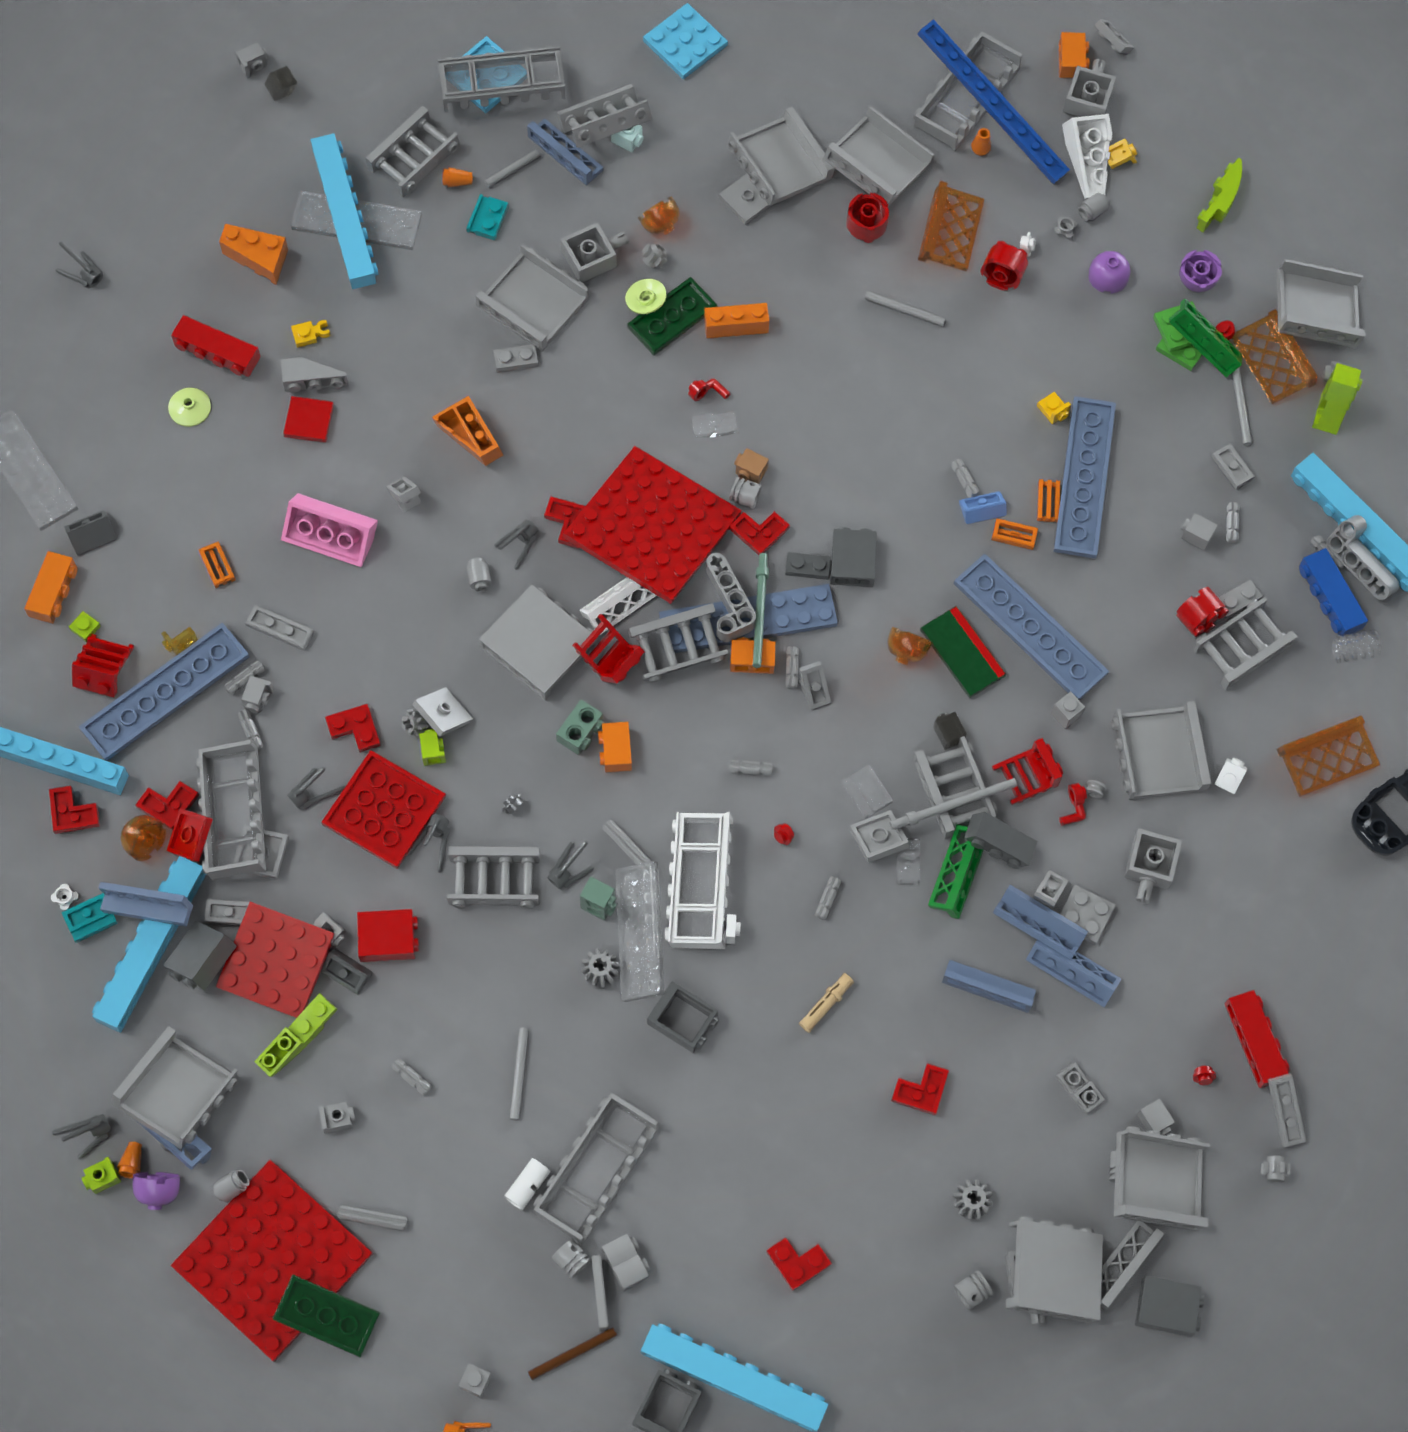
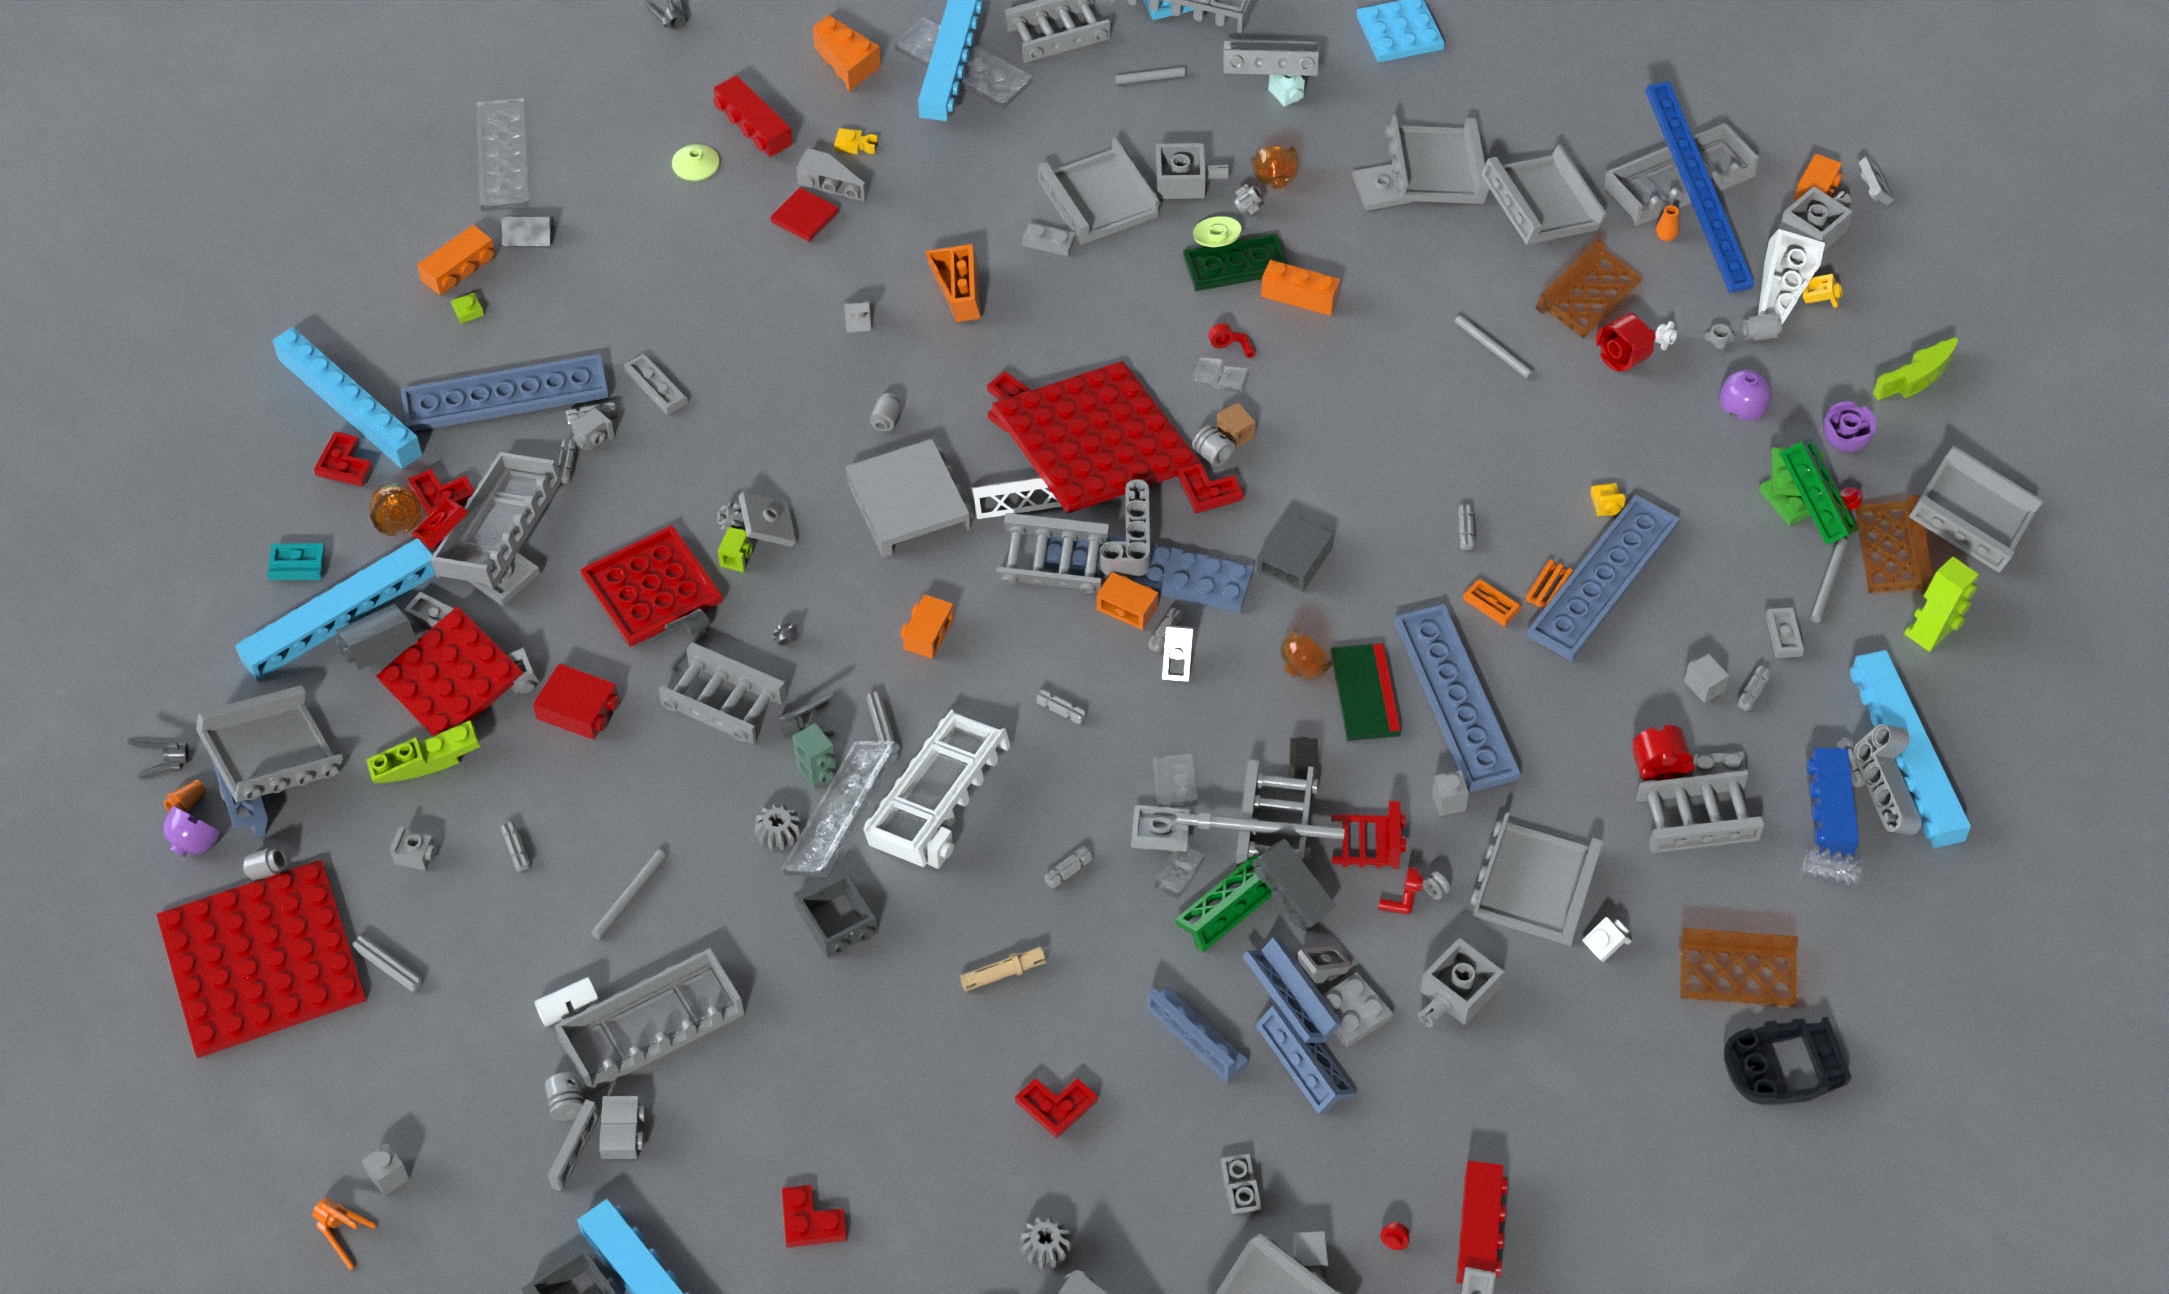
camera: 30 degrees right, 15 degrees down
(58, 895) = (285, 532): white plate -> none
(98, 673) = (453, 342): red plate -> none
(109, 1176) = (146, 799): lime brick -> none
(145, 904) = (353, 563): sand blue fence -> none
(180, 642) = (549, 352): clear yellow bracket -> none
(223, 579) = (629, 320): orange tile -> none
(300, 795) = (575, 537): dark grey plant -> none
(326, 1315) = (276, 1032): dark green tile -> none
(328, 529) = (759, 315): bright pink slope -> none
(346, 971) = (515, 719): dark grey slope -> none
(355, 721) = (676, 498): red plate -> none
(455, 177) = (1087, 62): orange cone -> none
(487, 217) = (1098, 108): teal plate -> none
(523, 532) = (957, 393): dark grey plant -> none
(561, 154) = (1209, 82): sand blue fence -> none
(572, 1353) = (507, 1195): reddish brown bar -> none
(575, 725) = (904, 589): sand green brick -> none
(618, 659) = (973, 547): red plate -> none
(762, 575) = (1183, 530): sand green bar -> none
(783, 833) = (1056, 783): red plate -> none
(807, 565) = (1239, 541): dark grey plate -> none
(867, 217) = (1499, 245): red brick -> none
(983, 507) = (1471, 564): medium blue slope -> none

